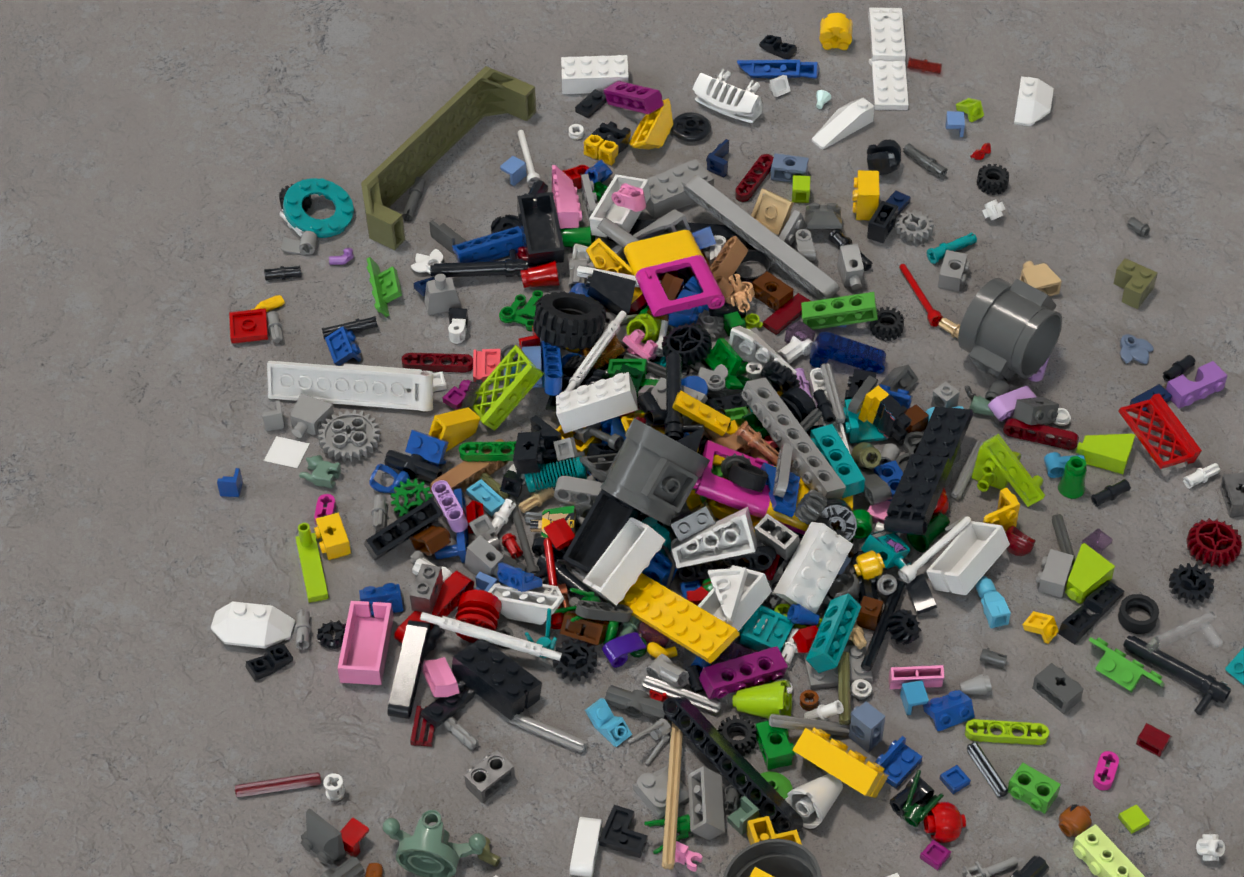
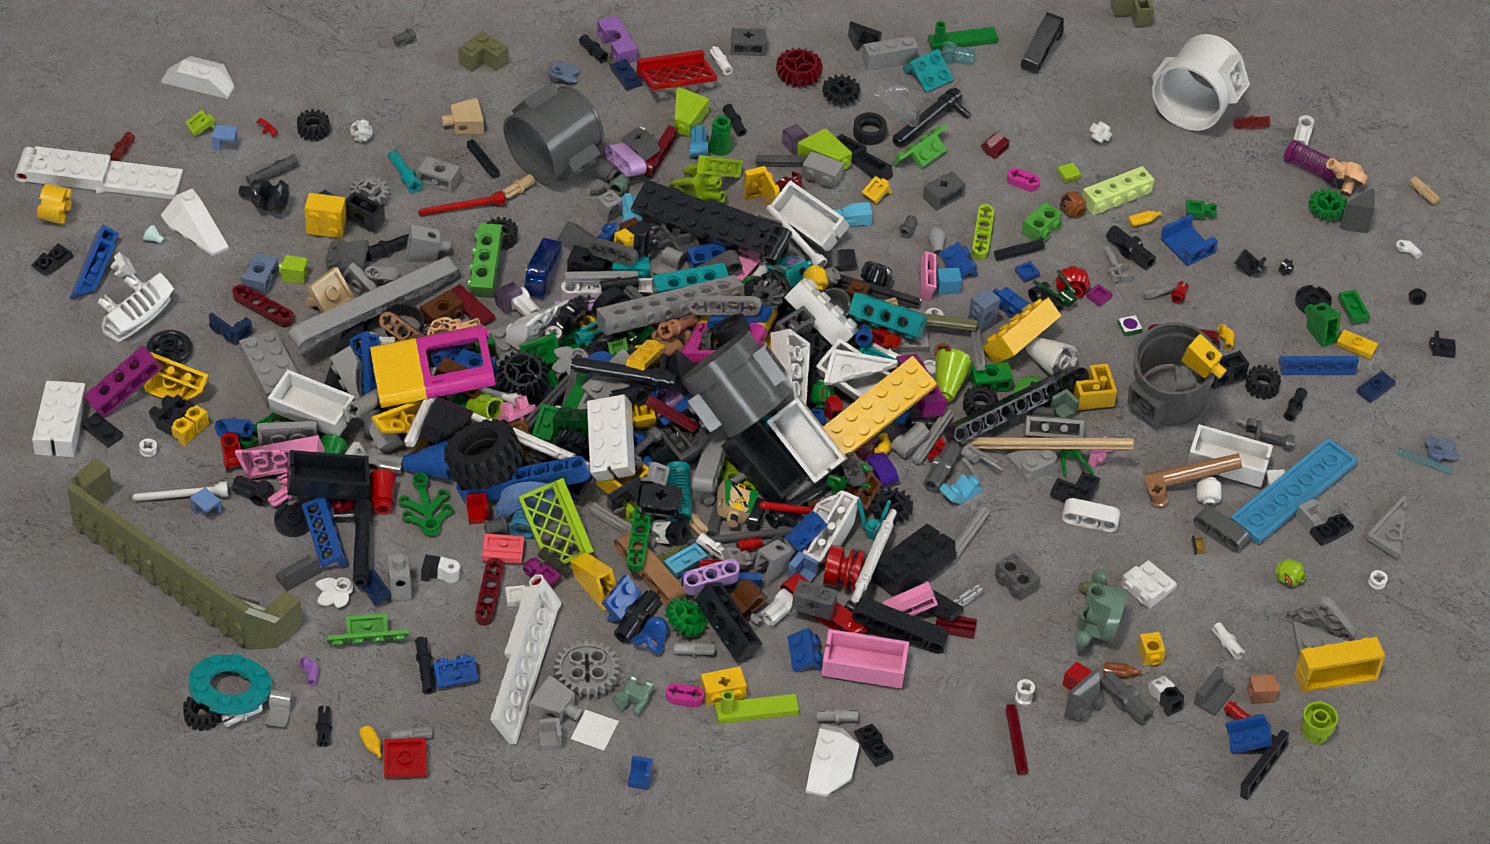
camera: 90 degrees left, 0 degrees up
(324, 635) = (837, 697): black gear -> none
(560, 533) = (756, 493): red piece -> none
(629, 197) = (319, 383): bright pink piece -> none
(823, 712) = (965, 335): white axle -> none
(860, 453) = (686, 260): olive plant -> none

